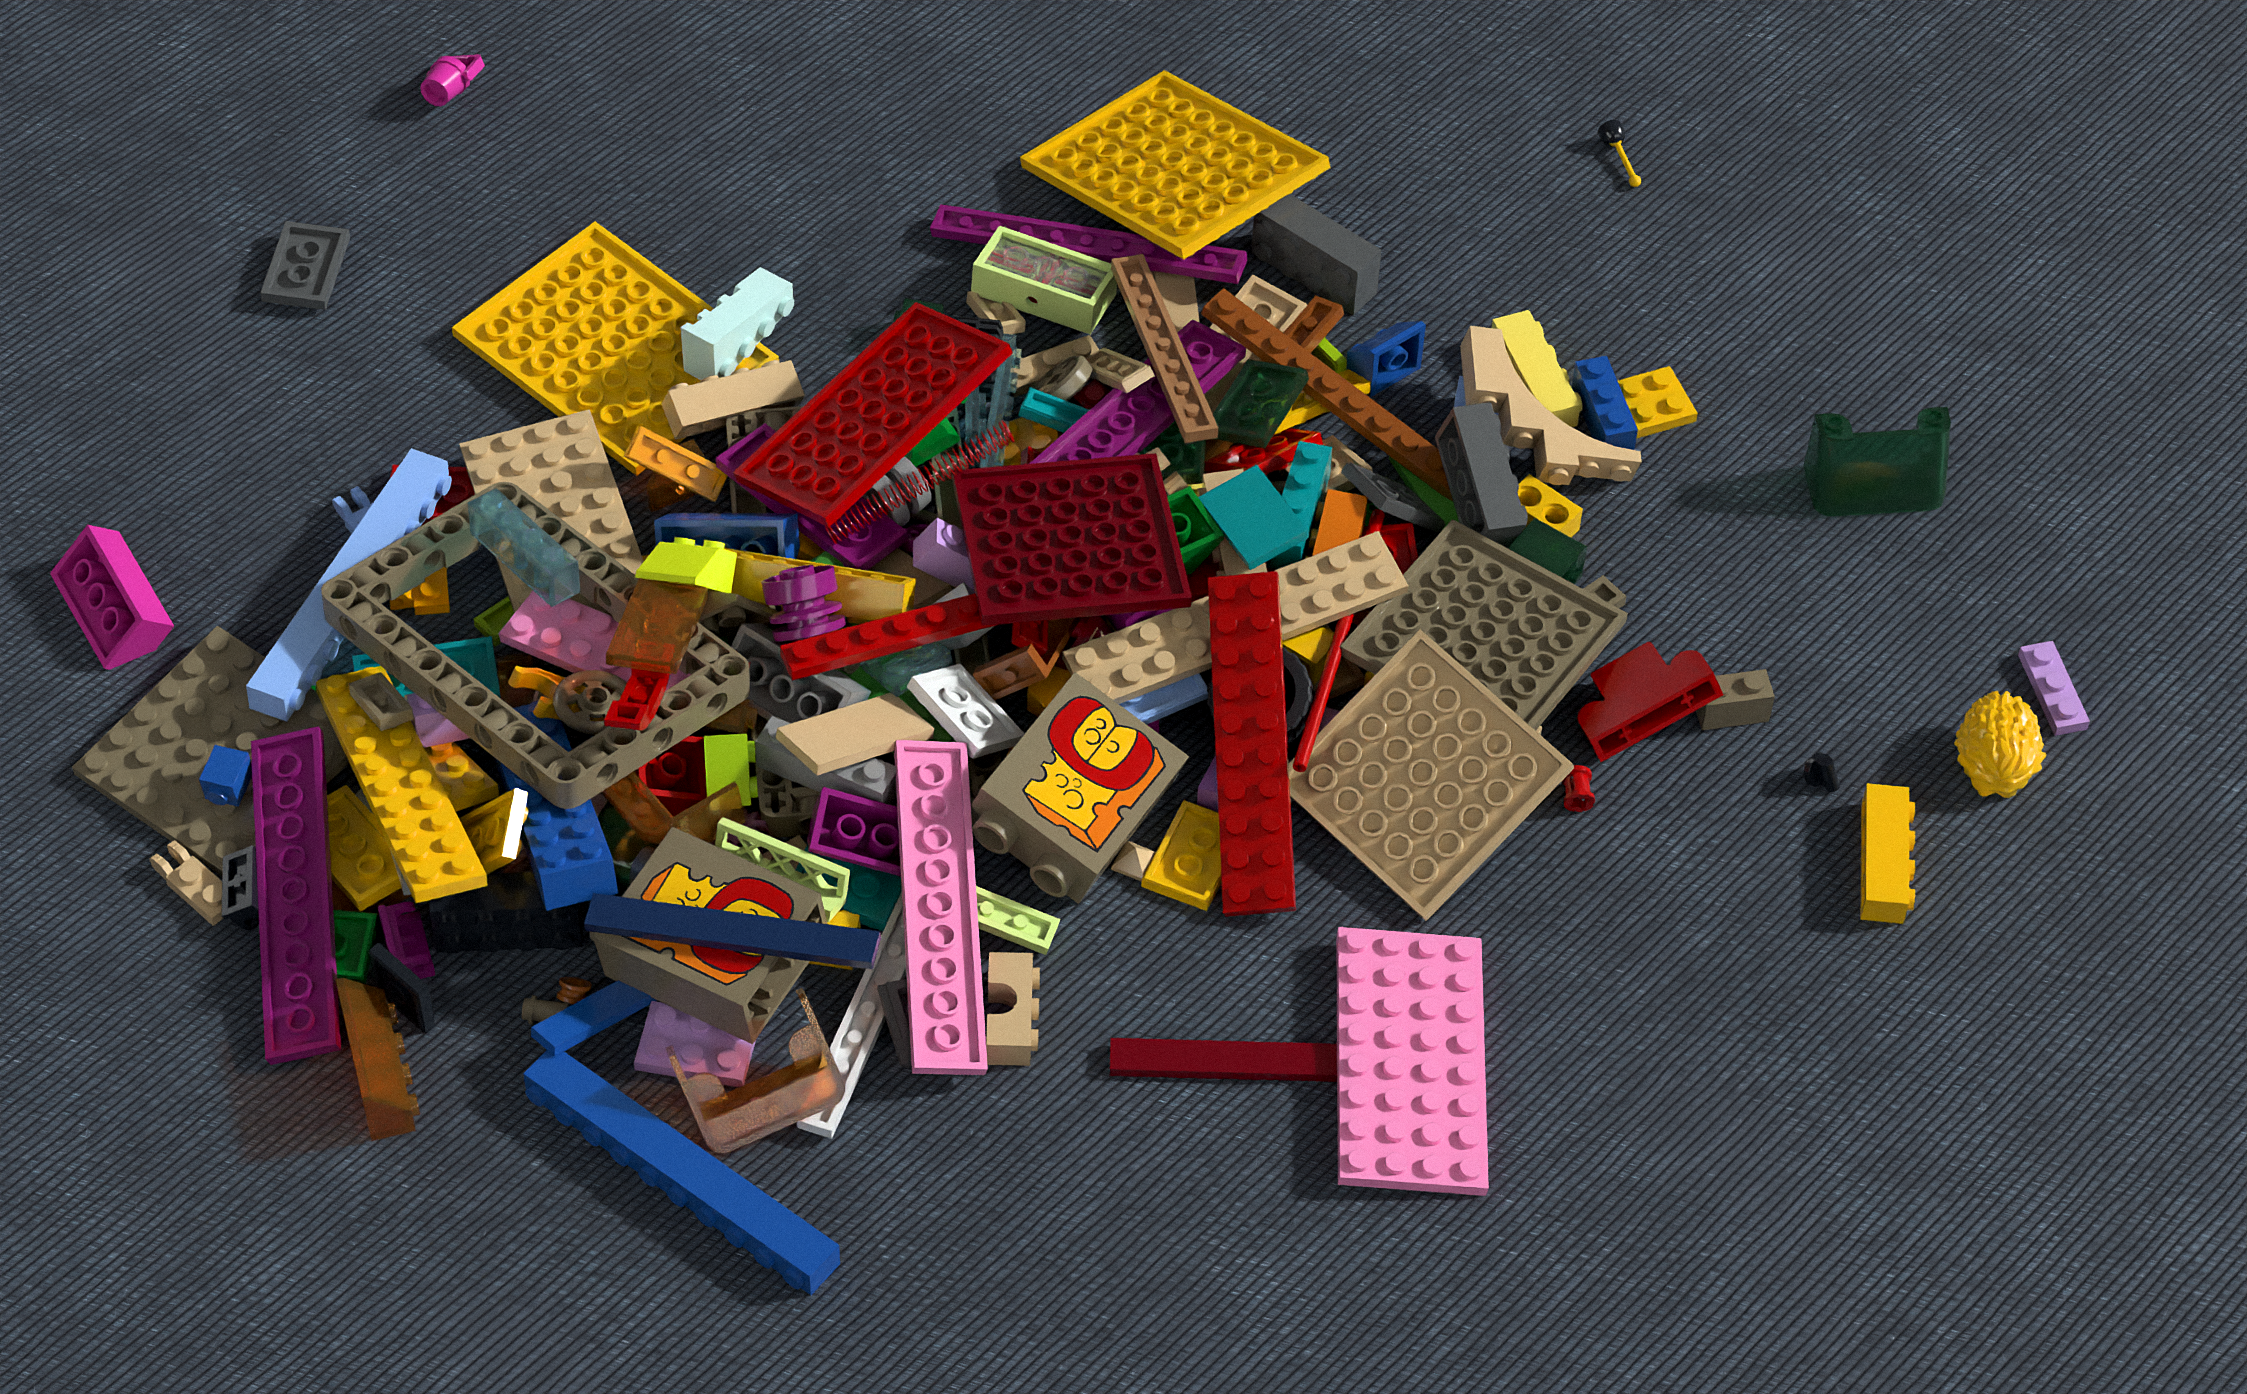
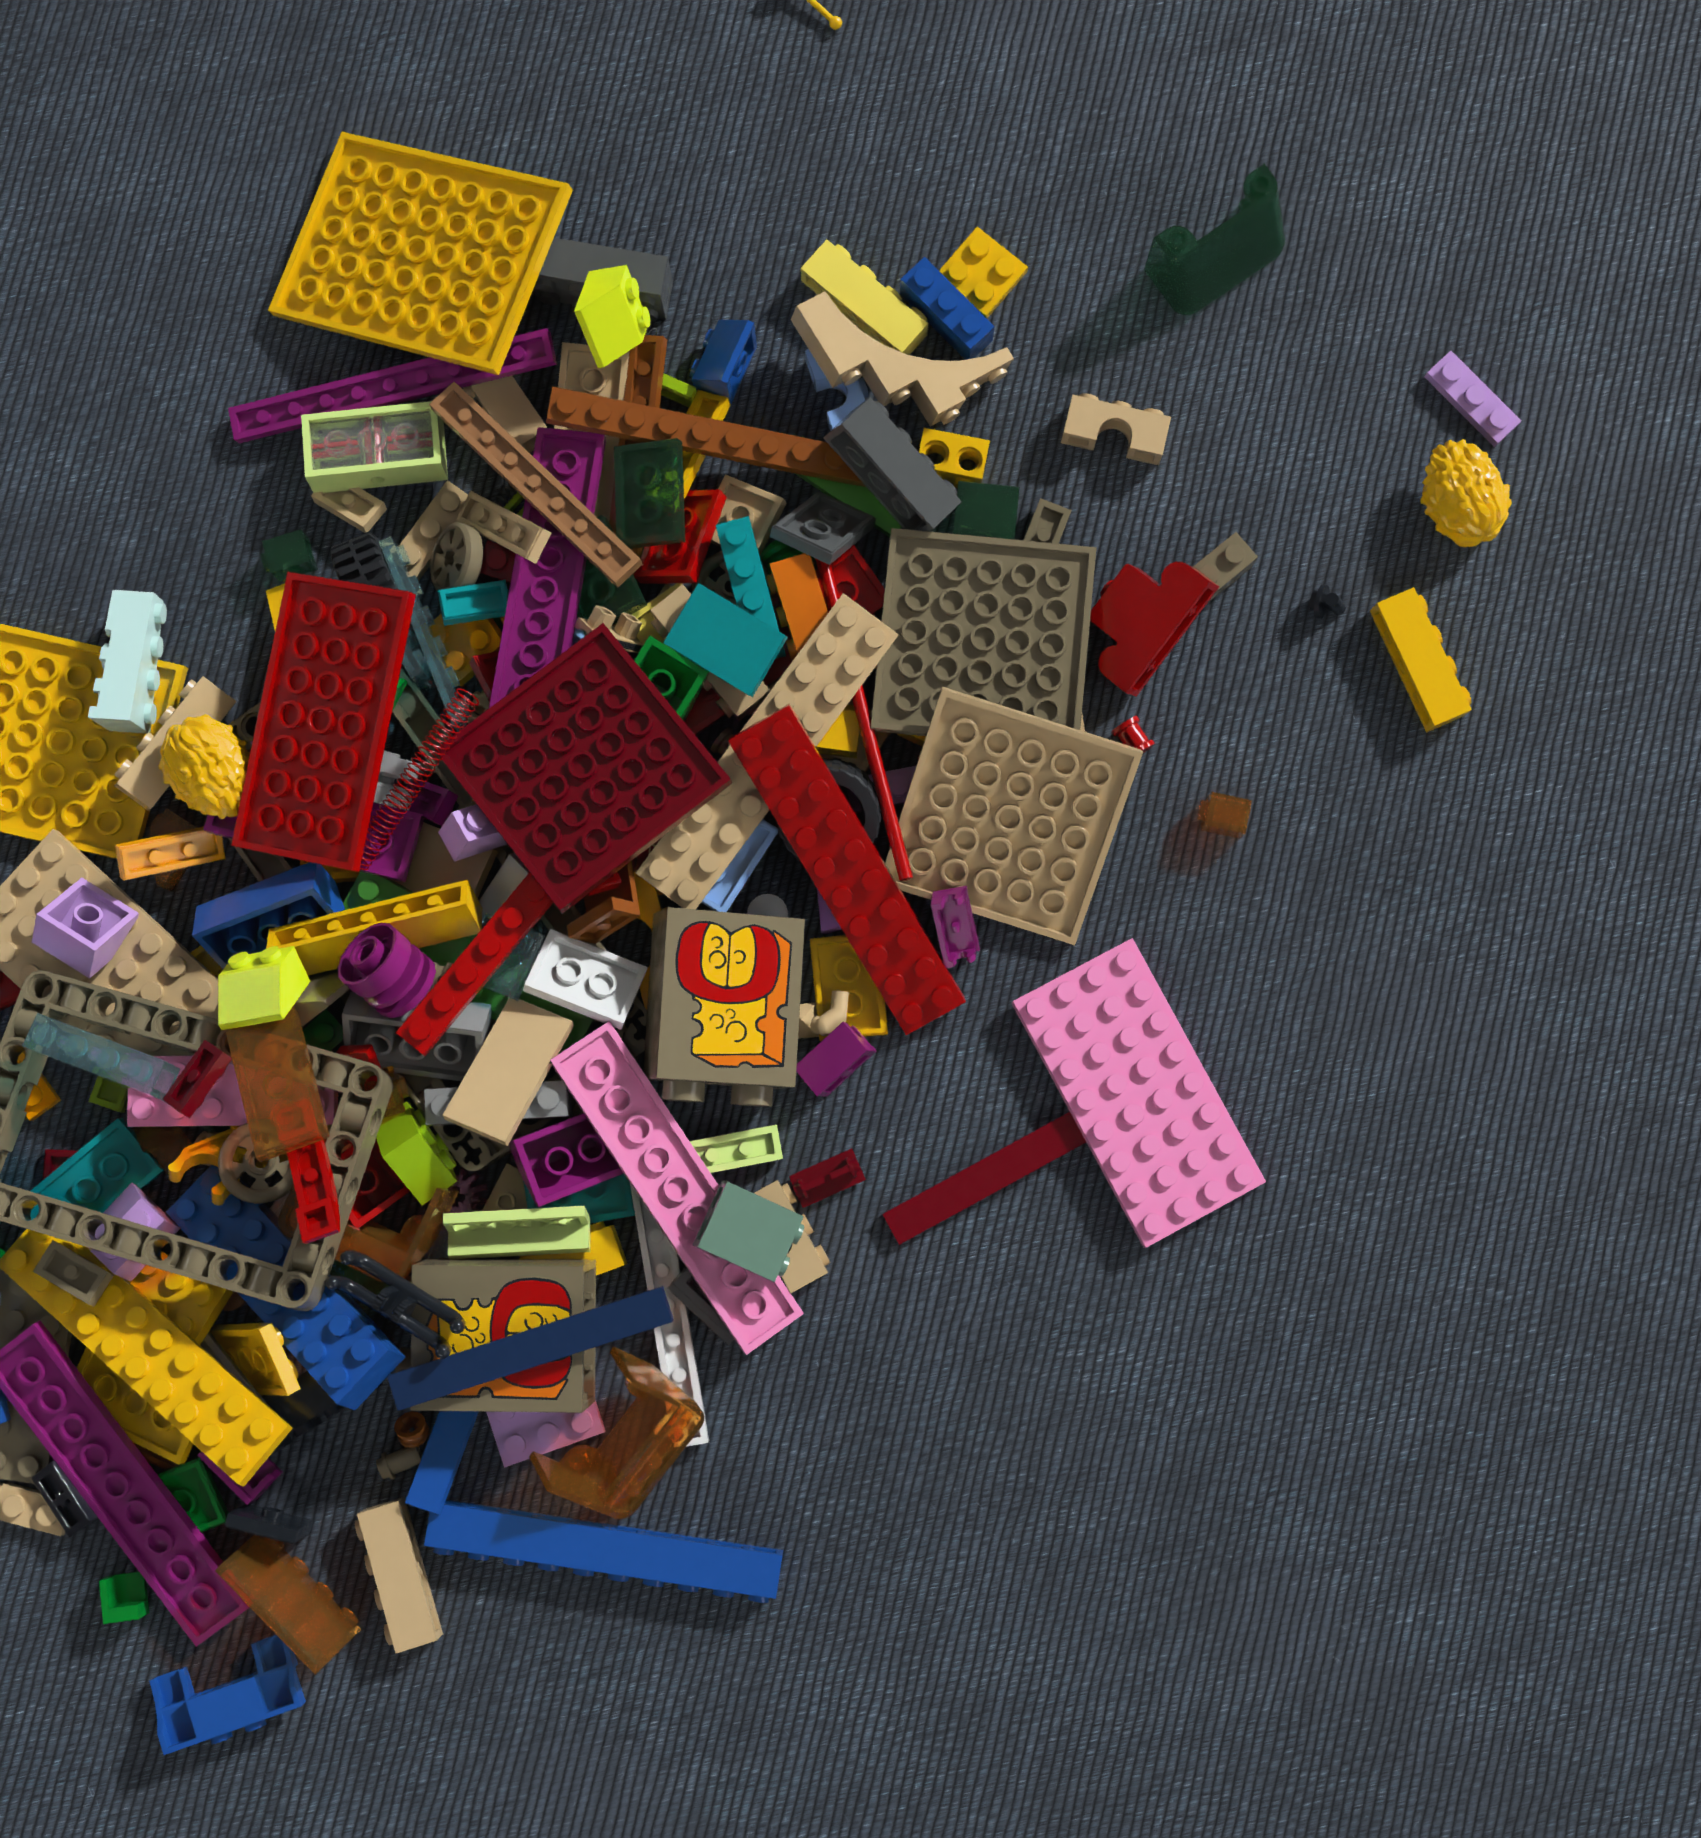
camera: 25 degrees left, 30 degrees up
(229, 994) = (123, 1597): none -> green panel
(264, 1113) = (214, 1713): none -> blue bracket
(482, 1095) = (399, 1575): none -> tan brick
(566, 476) = (83, 927): none -> lavender slope
(606, 592) = (197, 1079): none -> dark red plate
(639, 838) = (398, 1301): none -> black piece
(749, 408) = (205, 765): none -> yellow hair
(984, 962) = (749, 1231): none -> sand green panel
(1078, 987) = (827, 1178): none -> dark red hinge
(1146, 895) = (834, 1059): none -> magenta hinge
(1166, 862) = (832, 1018): none -> tan arm
(1306, 263) = (611, 313): none -> neon yellow slope
(1321, 842) = (955, 925): none -> magenta hinge
(1627, 884) = (1224, 814): none -> clear orange brick
(1686, 541) = (1144, 429): none -> tan arch

